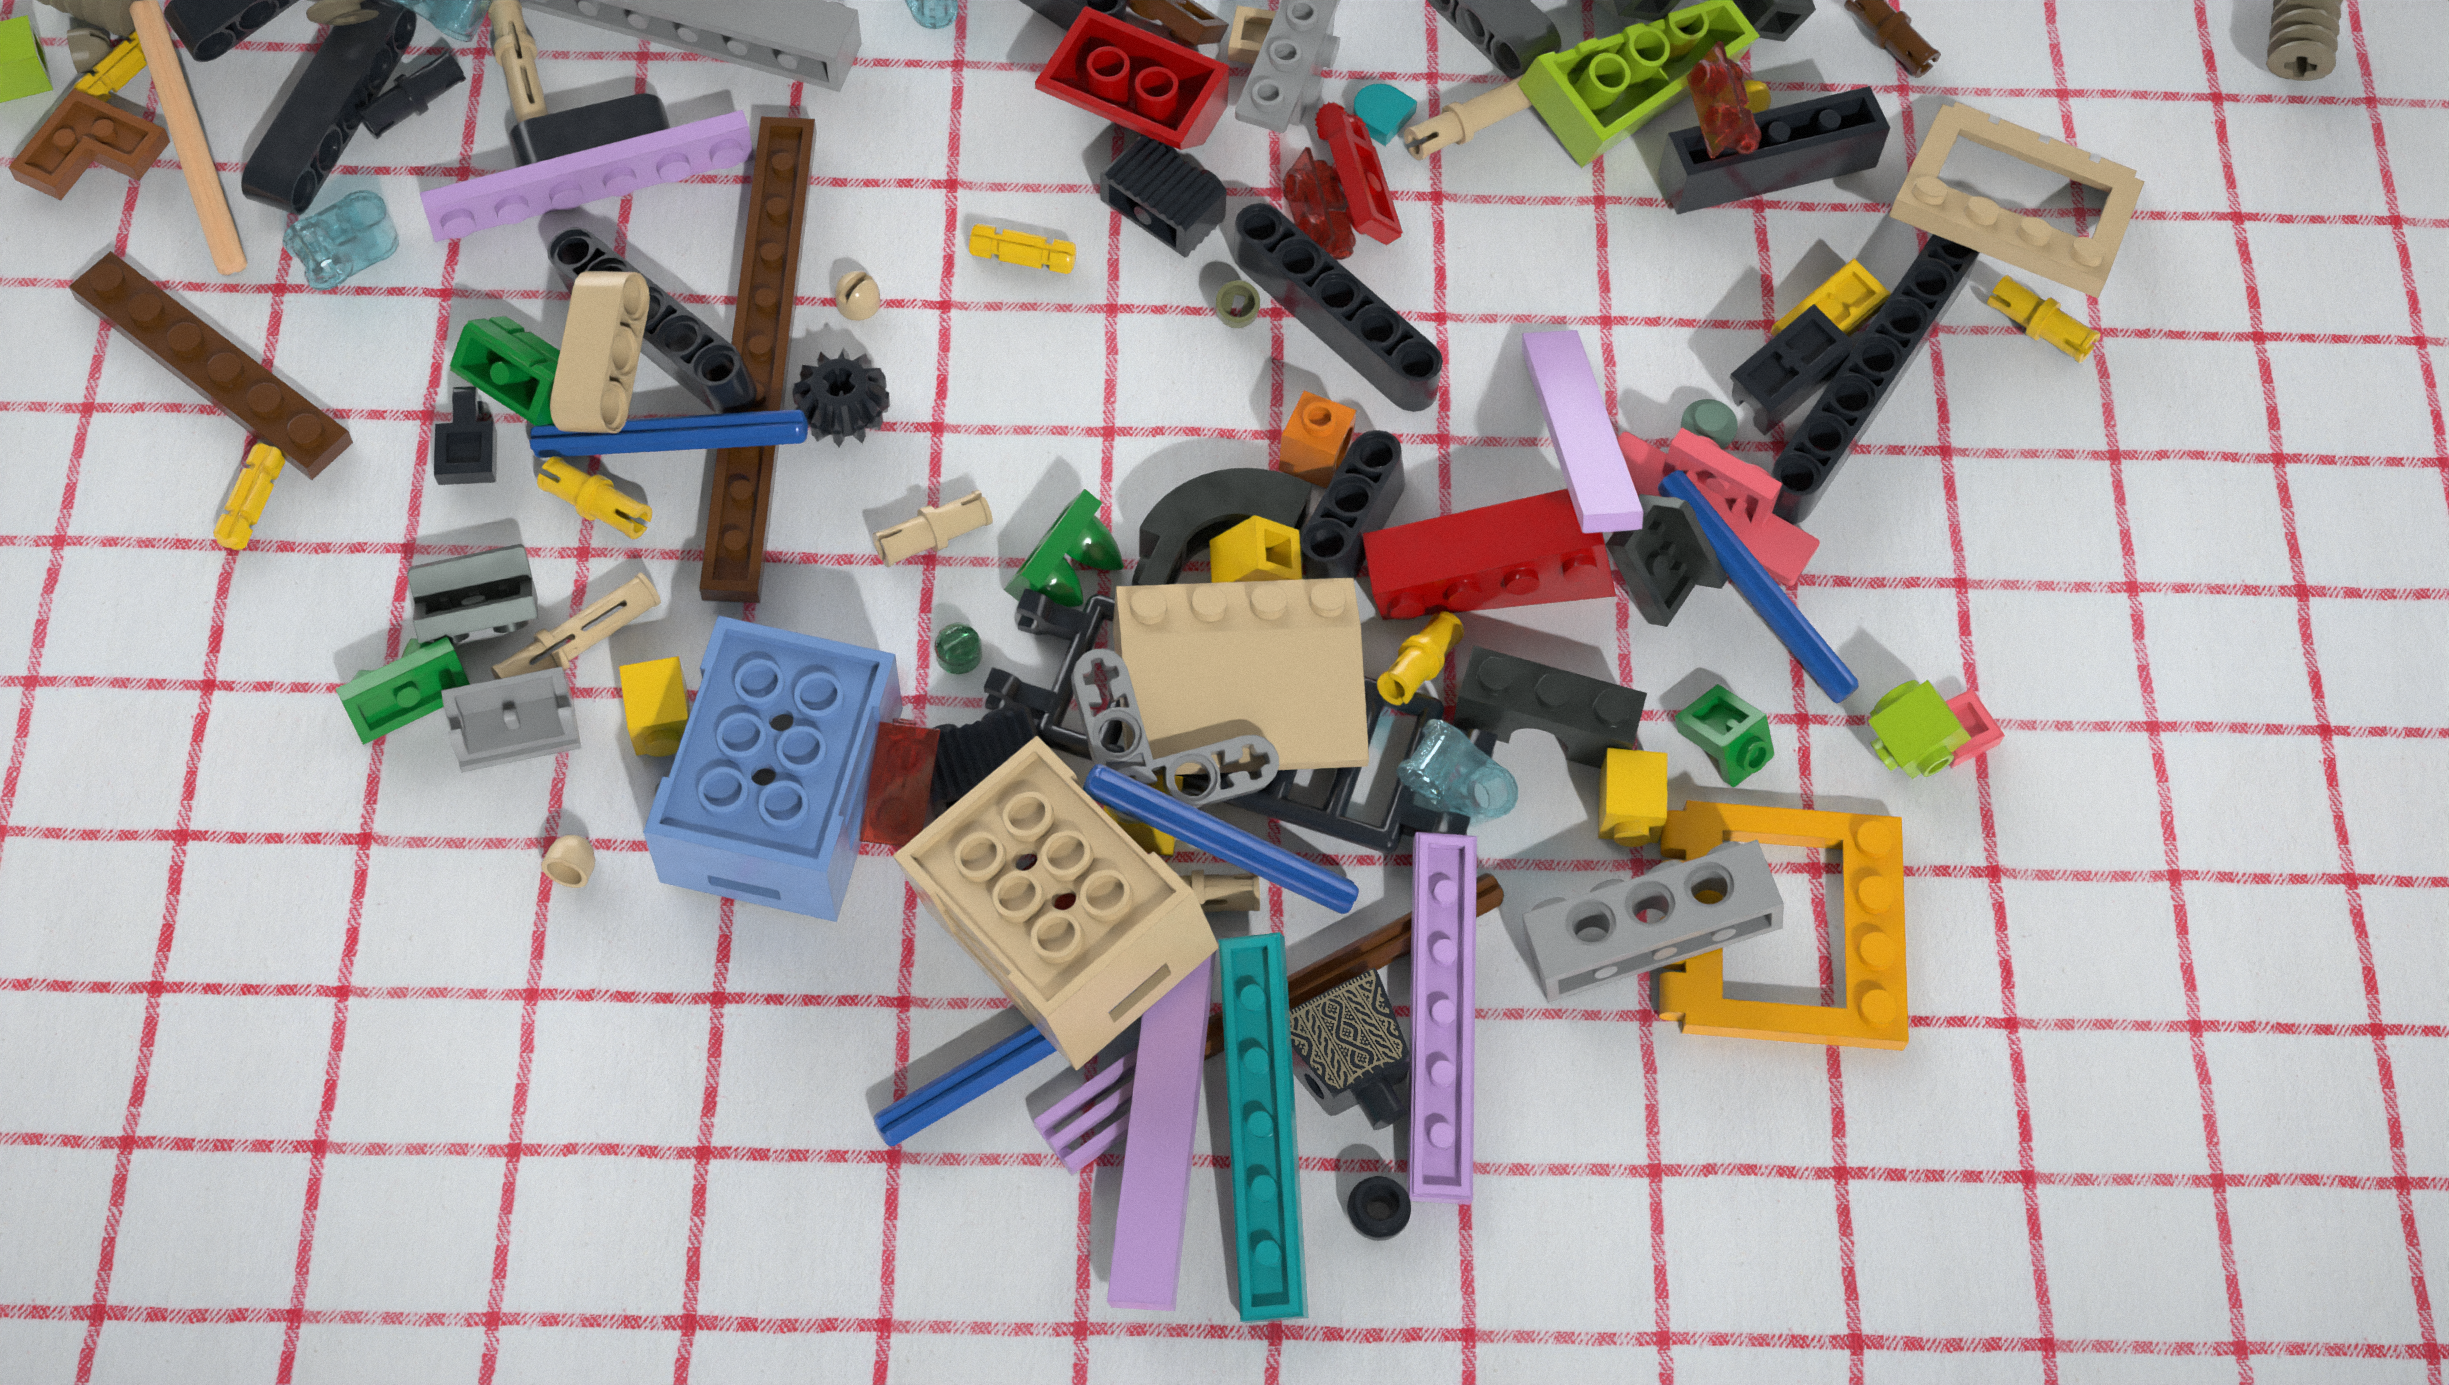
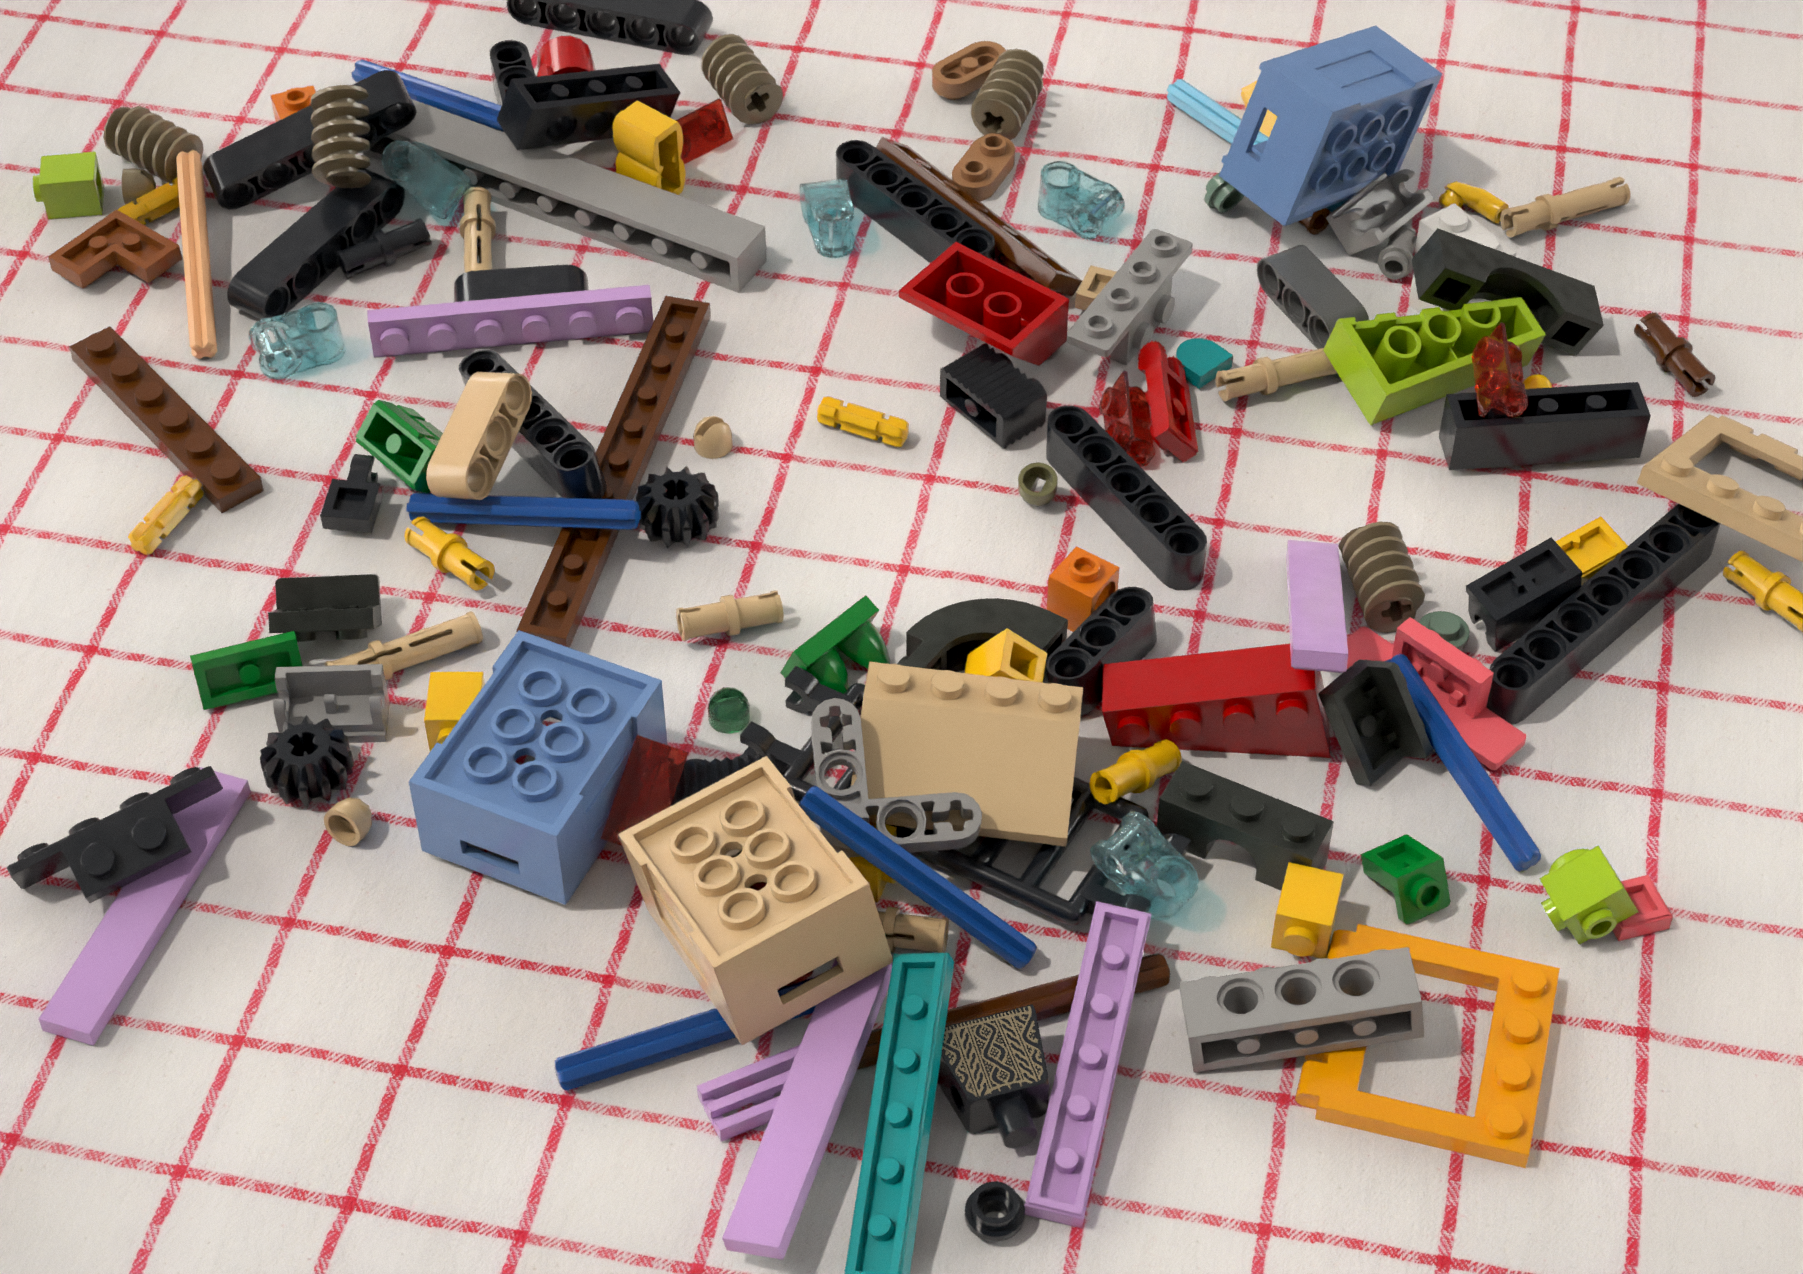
camera: 15 degrees right, 15 degrees down
(324, 946) = (122, 845): none -> black bracket
(366, 1006) = (138, 921): none -> lavender tile
(494, 778) = (306, 761): none -> black gear
(1634, 367) = (1382, 575): none -> dark tan piece

